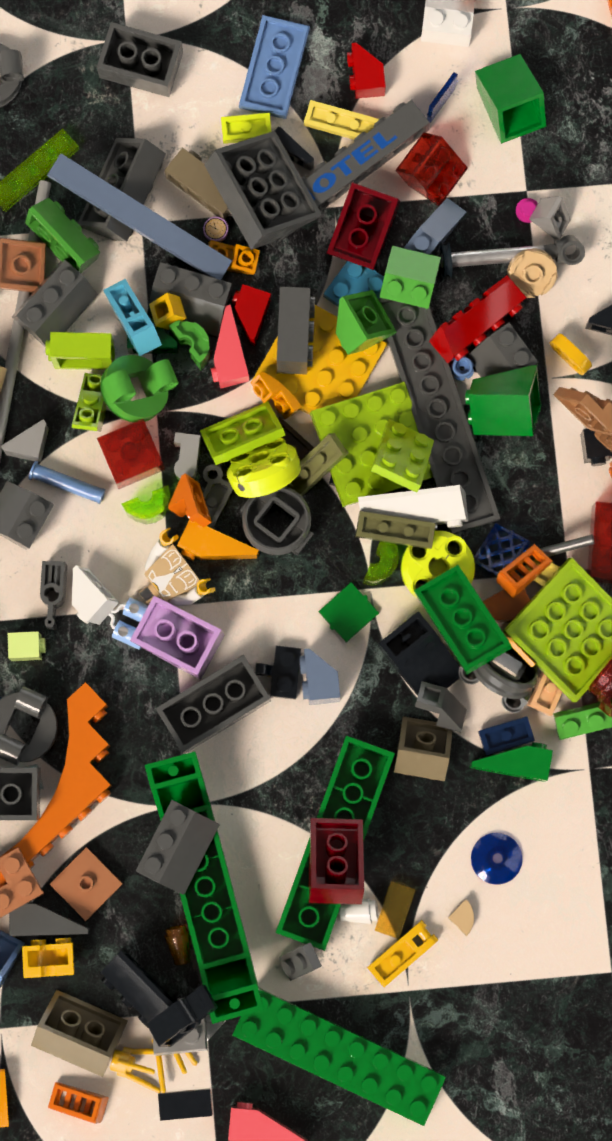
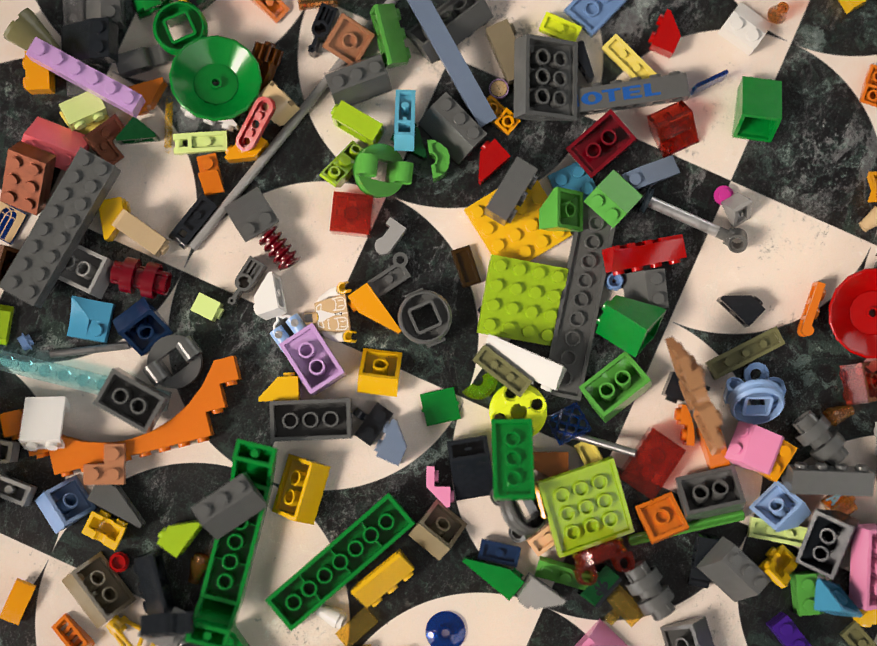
camera: 30 degrees right, 5 degrees up
(28, 444) = (287, 168): light grey slope -> none
(66, 483) = (297, 209): medium blue pin -> none
(69, 537) = (278, 249): none -> dark red piece
(84, 989) = (119, 562): none -> red plate
(86, 884) = (159, 491): nougat plate -> none
(139, 915) = (179, 536): none -> lime slope
(151, 510) = (344, 262): clear neon green cylinder -> none
(161, 687) = (283, 389): none -> yellow slope
(167, 310) = (431, 128): yellow plate -> none
(190, 501) = (373, 271): orange slope -> none
(229, 358) = (457, 183): coral slope -> none
(242, 433) = (436, 242): lime plate -> none
(245, 789) = (301, 489): none -> yellow slope
(260, 611) = (379, 372): none -> yellow slope
(264, 469) = (436, 277): neon yellow piece -> none
(269, 388) = (471, 221): light orange slope -> none
(300, 961) = (271, 628): dark grey plate -> none
(318, 463) = (473, 293): olive plate -> none
(336, 861) = (332, 576): dark red slope -> none
(395, 836) = (383, 579): none -> yellow slope
(402, 455) = (536, 322): lime plate -> none
(404, 705) = (443, 493): none -> bright pink slope
(441, 701) = (467, 507): dark grey slope -> none
(512, 582) = (559, 444): orange slope -> none
(530, 481) = (615, 386): none -> bright green slope
(533, 272) = (701, 241): tan tile -> none
(570, 354) = (695, 313): yellow beam -> none
(574, 754) = (538, 594): none -> light grey slope

